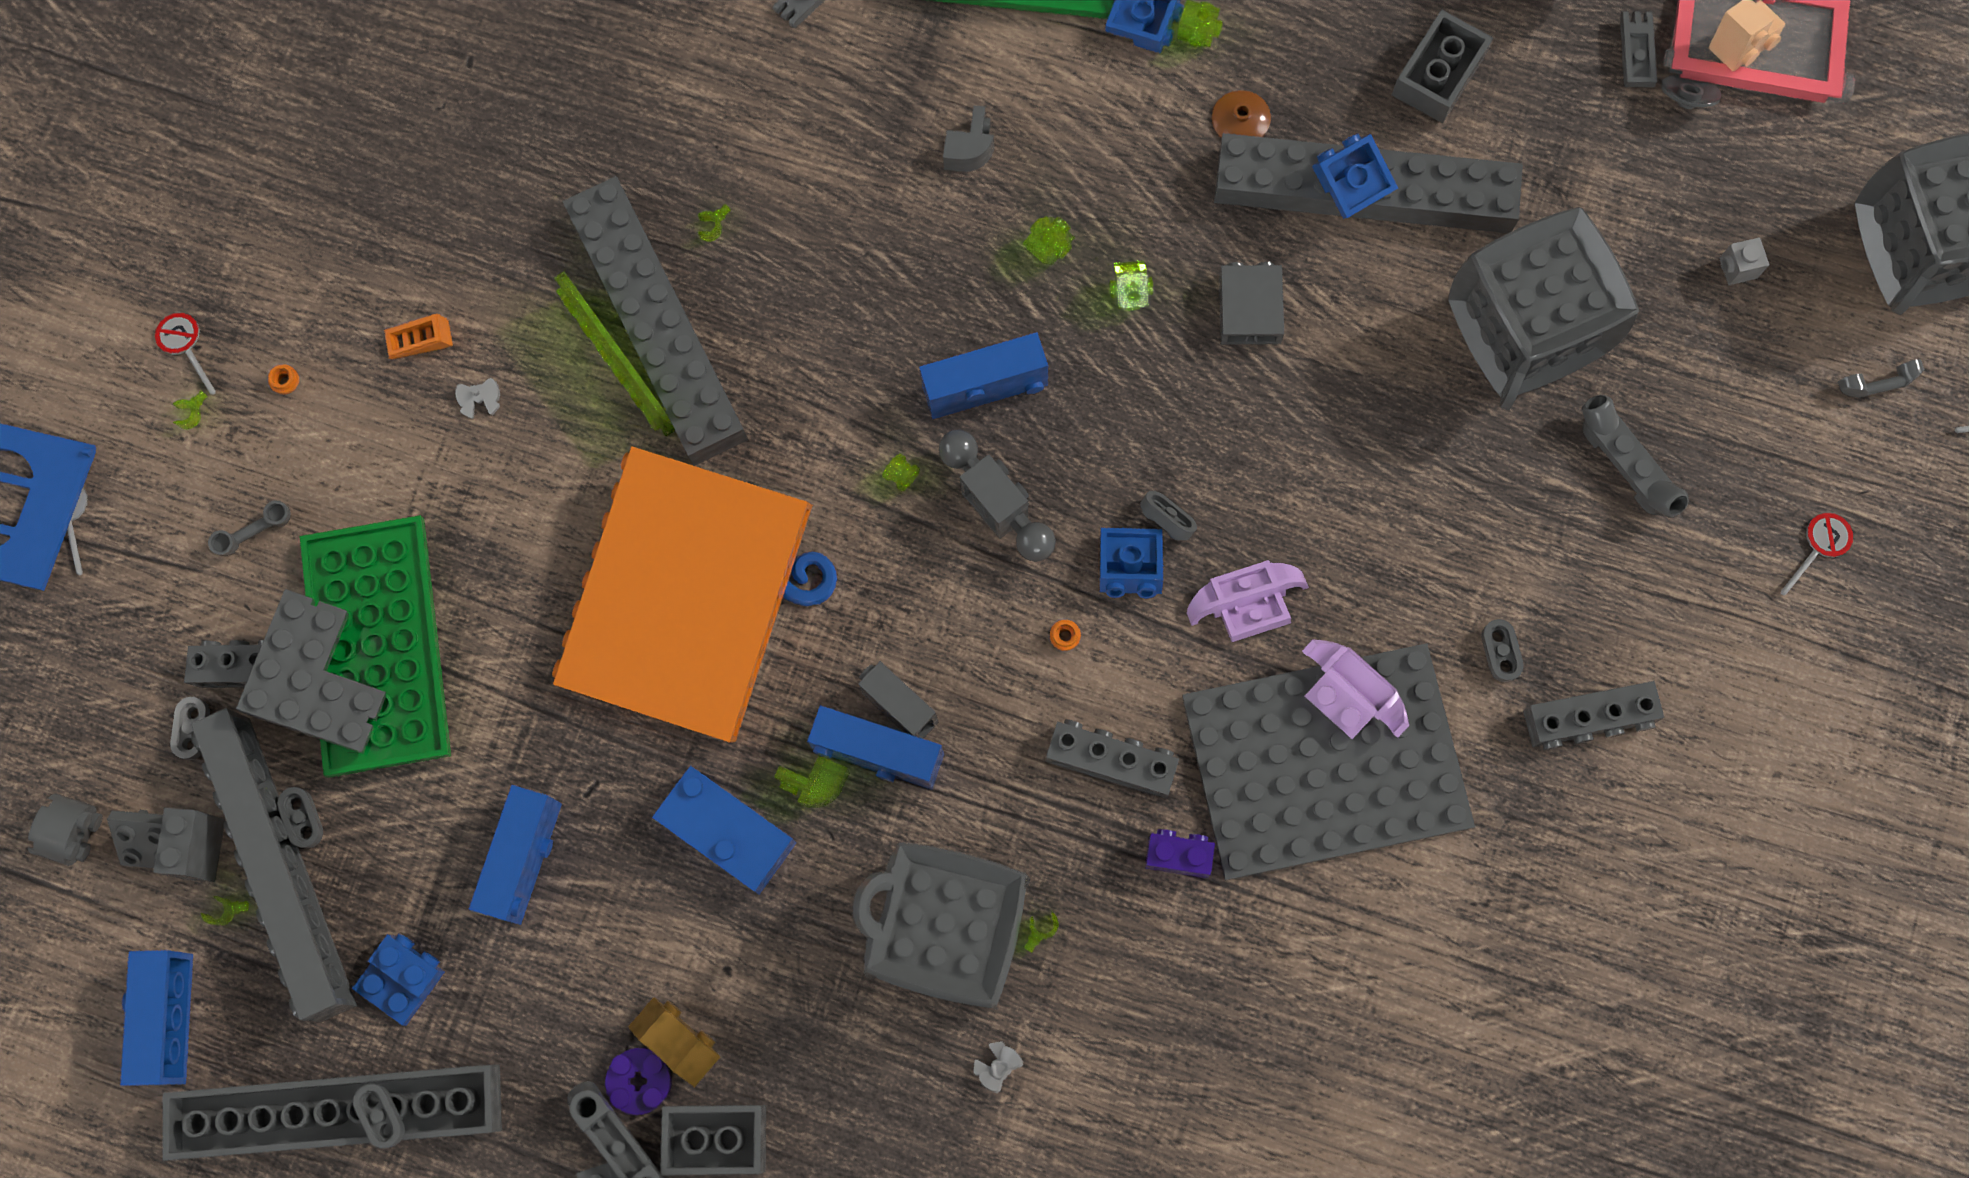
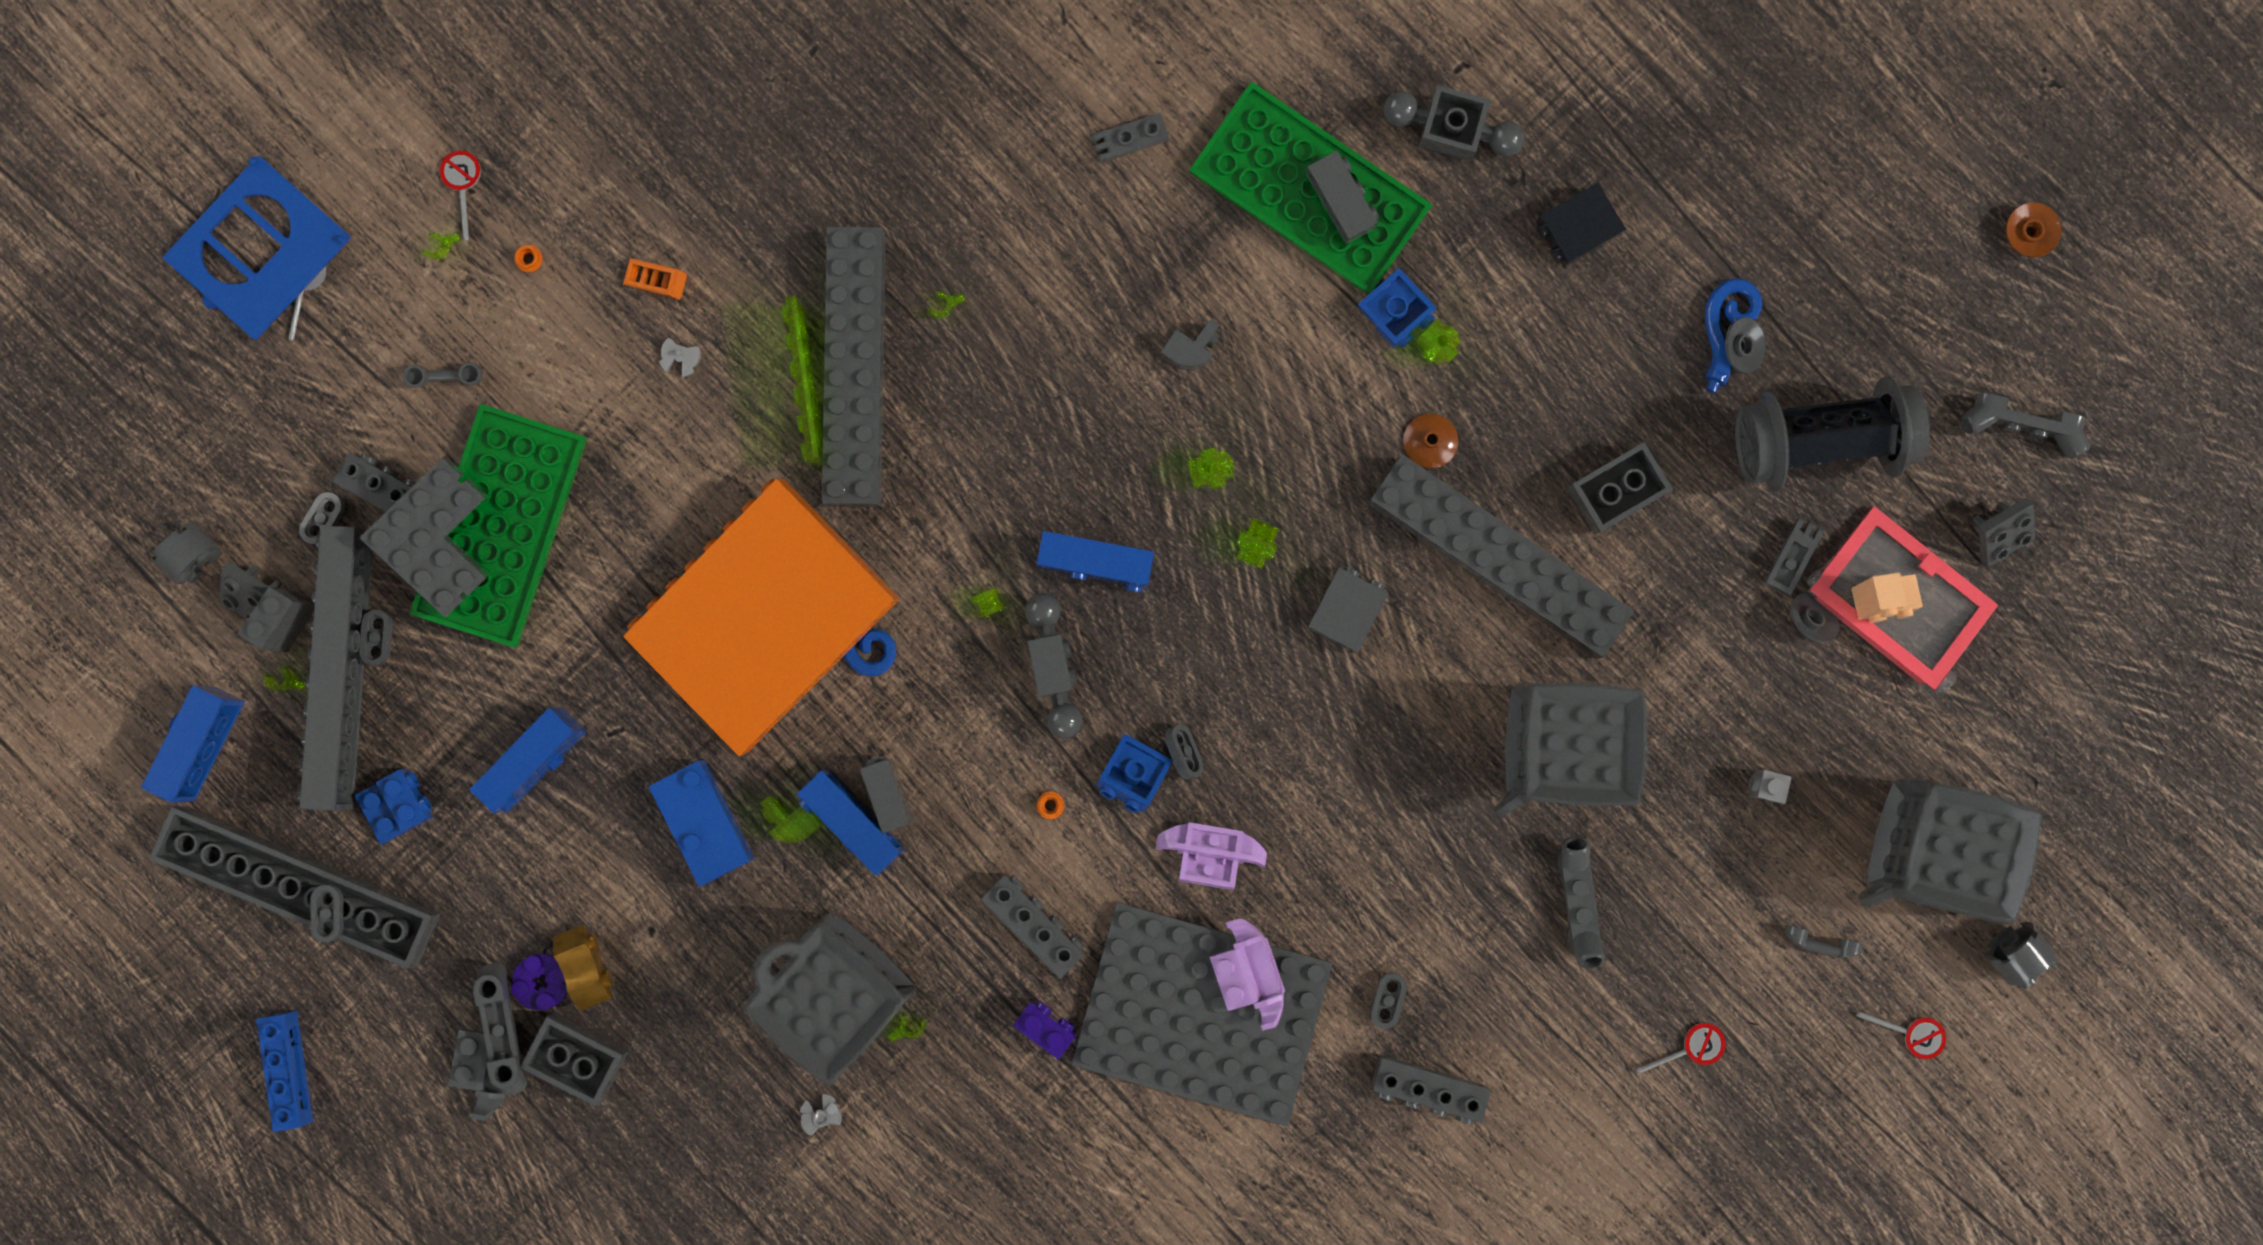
camera: 20 degrees right, 10 degrees up
(1354, 174) = (1486, 552): blue plate -> none

